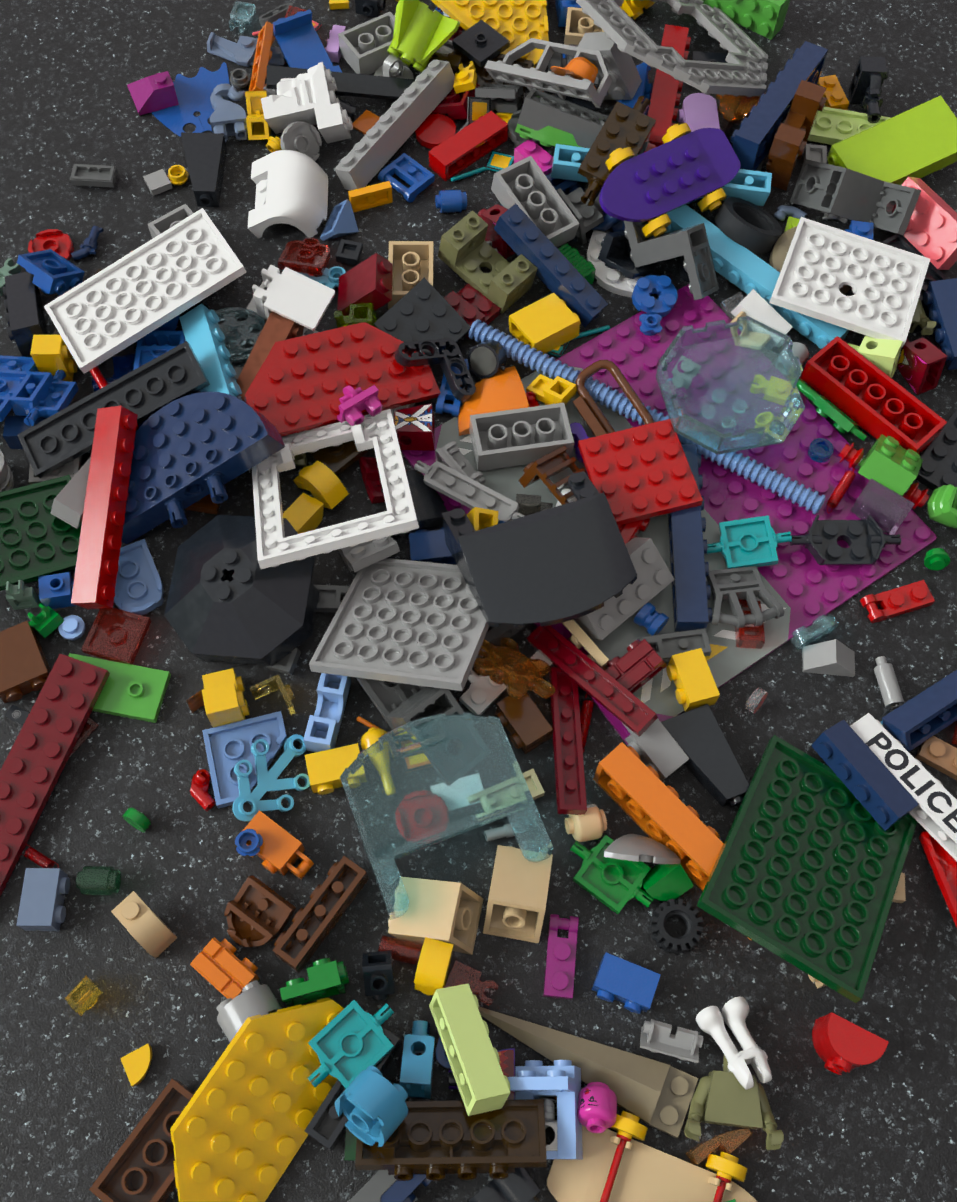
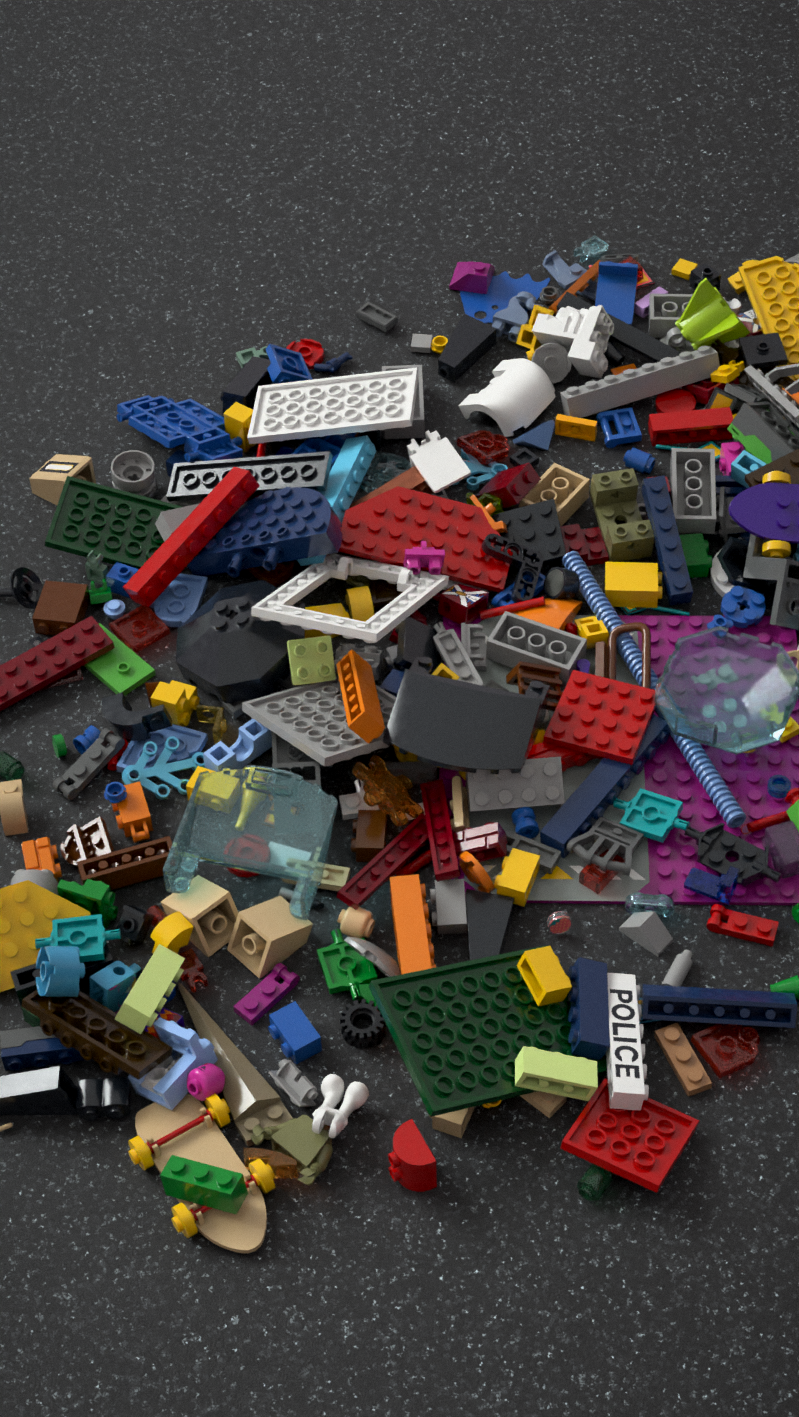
camera: 40 degrees right, 15 degrees down
(164, 795) = (84, 741): none -> blue wheel
(186, 822) = (89, 764): none -> dark grey plate
(201, 753) = (131, 724): none -> black arch
(334, 576) = (311, 660): none -> yellowish green plate
(372, 320) = (488, 510): none -> orange piece
(425, 589) = (360, 697): none -> orange brick
(464, 407) = (515, 607): none -> red bar
(660, 701) = (475, 872): none -> orange tile
(811, 771) = (544, 975): none -> yellow brick
(854, 580) = (712, 886): none -> clear blue bracket
(903, 866) = (556, 1073): none -> yellowish green brick

